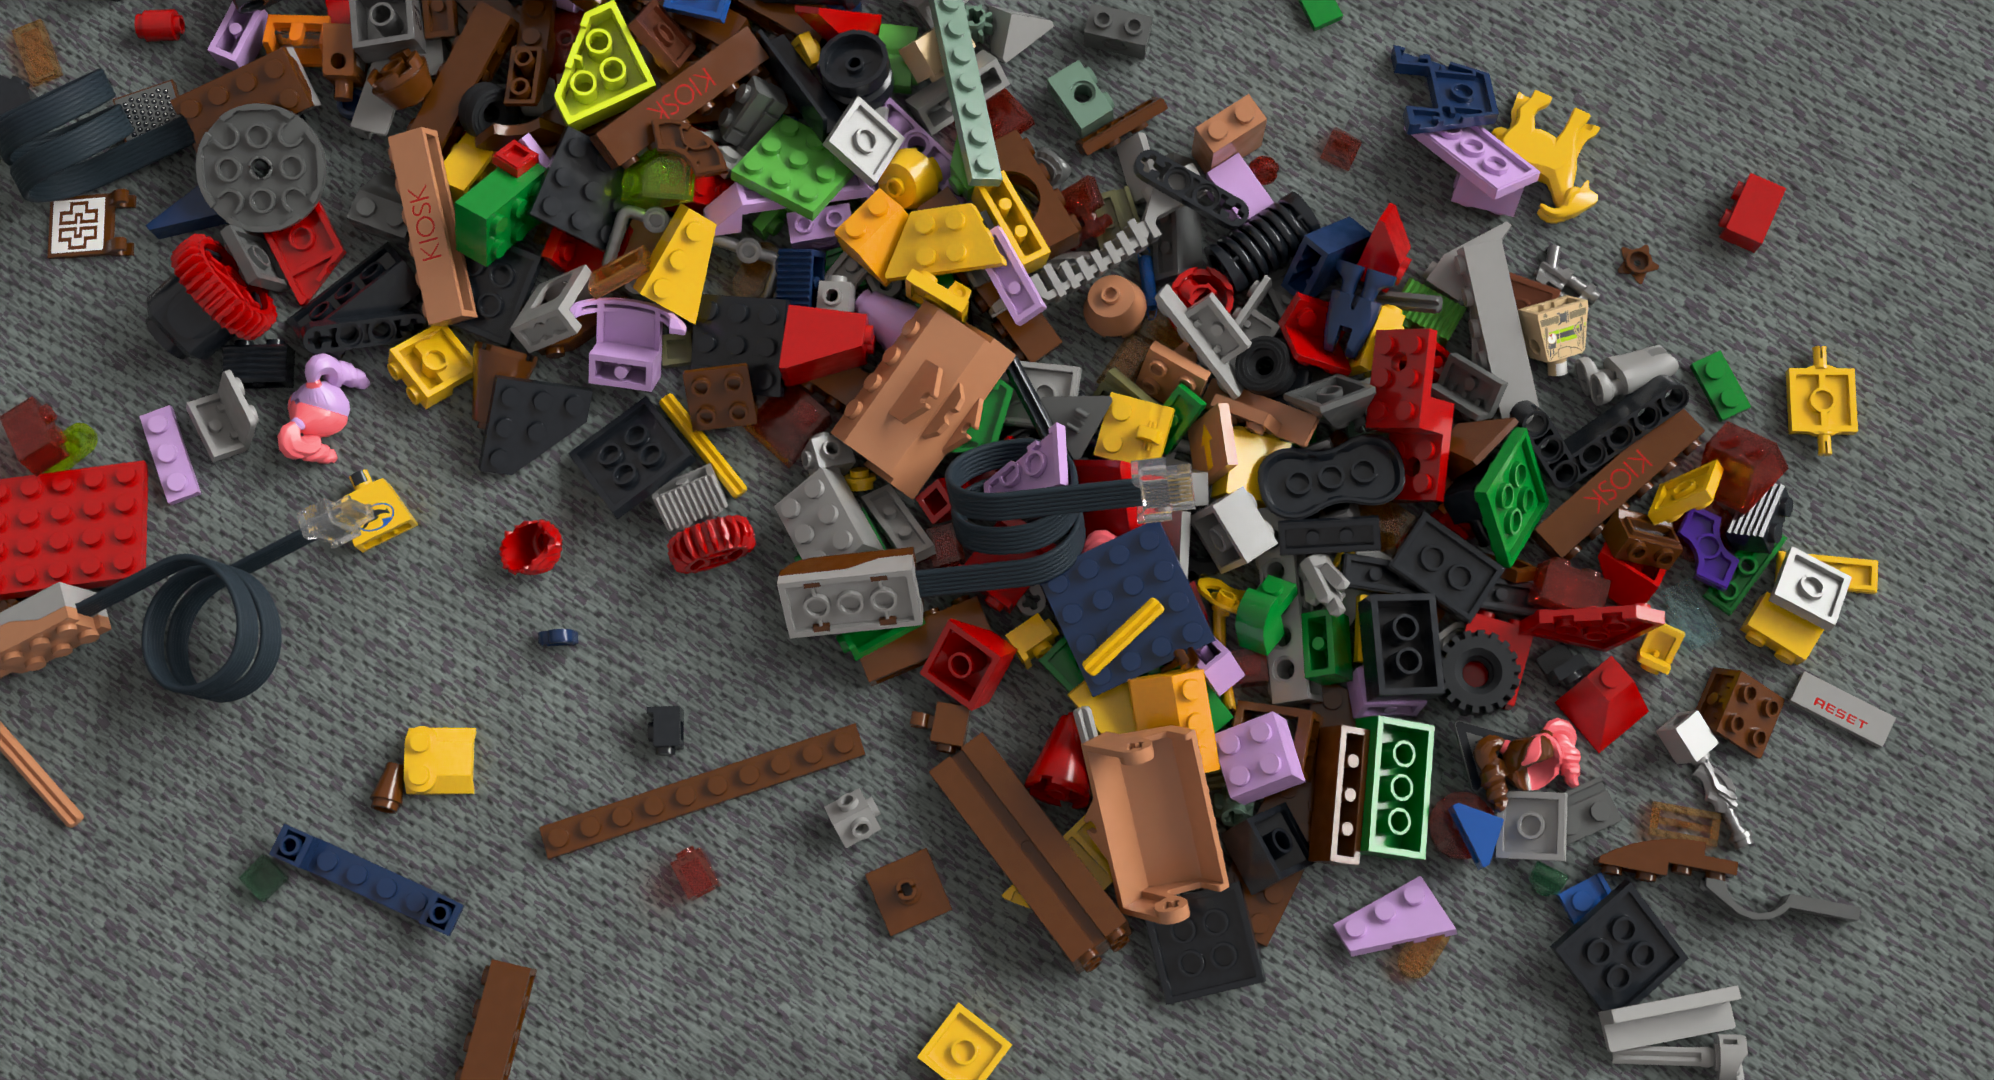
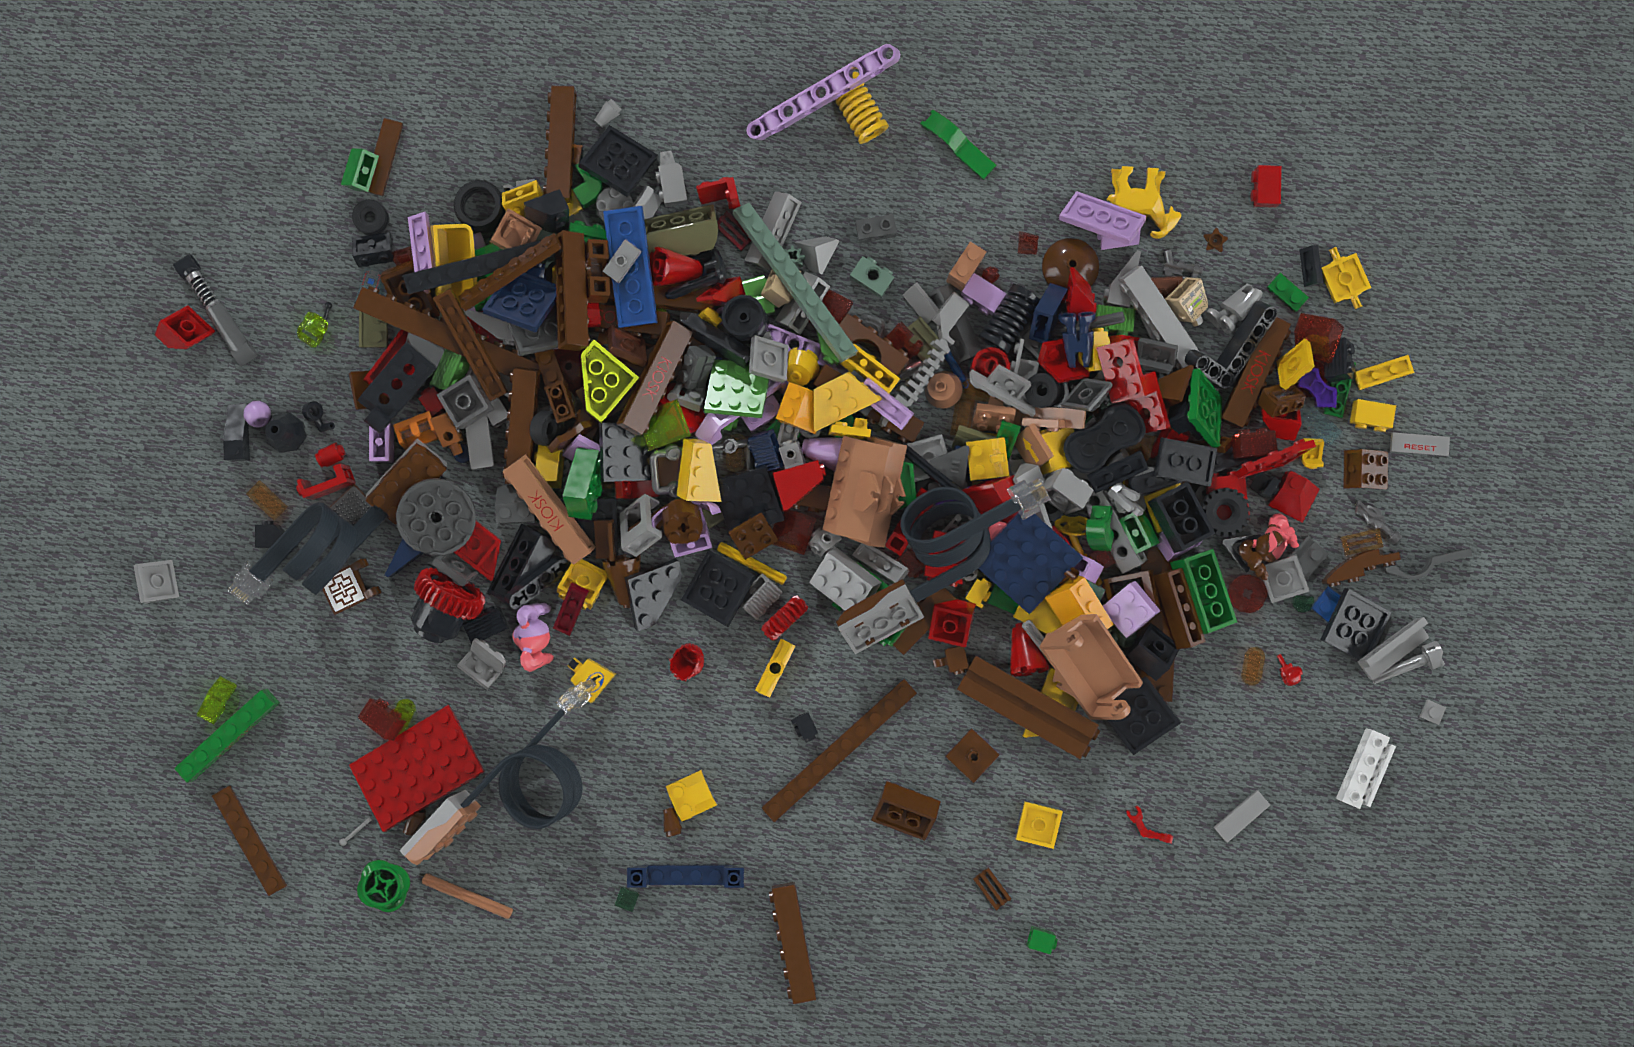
camera: 30 degrees left, 10 degrees up
(150, 65) = (343, 480): none -> red panel
(170, 455) = (460, 695): lavender plate -> none
(394, 392) = (570, 609): none -> dark red tile
(402, 80) = (491, 432): reddish brown cone -> none
(497, 310) = (605, 539): none -> reddish brown panel
(515, 158) = (579, 452): red tile -> none
(558, 637) = (723, 703): dark blue tile -> none
(619, 272) = (667, 491): clear orange tile -> none
(620, 326) = (682, 522): none -> reddish brown brick
(645, 632) = (781, 656): none -> yellow piece
(690, 145) = (676, 405): reddish brown tile -> none
(695, 872) = (856, 795): clear red brick -> none
(762, 932) = (906, 810): none -> reddish brown slope
(854, 817) = (927, 730): light grey brick -> none
(860, 479) = (847, 545): yellow plate -> none
(1040, 467) = (945, 510): lavender wing -> none
(1110, 133) = (900, 284): reddish brown plate -> none
(1123, 636) = (1034, 577): yellow axle -> none
(1188, 195) = (961, 309): black beam -> none
(1394, 919) = (1233, 658): lavender wing -> none
(1419, 200) = (1057, 258): none -> reddish brown dish
(1457, 92) = (1080, 185): dark blue wing -> none
(1478, 832) = (1259, 595): blue slope -> none
(1478, 986) = (1290, 674): none -> red piece
(1687, 737) = (1346, 496): brick -> none
(1774, 359) = (1311, 266): none -> black plate
(1810, 589) = (1380, 388): plate -> none

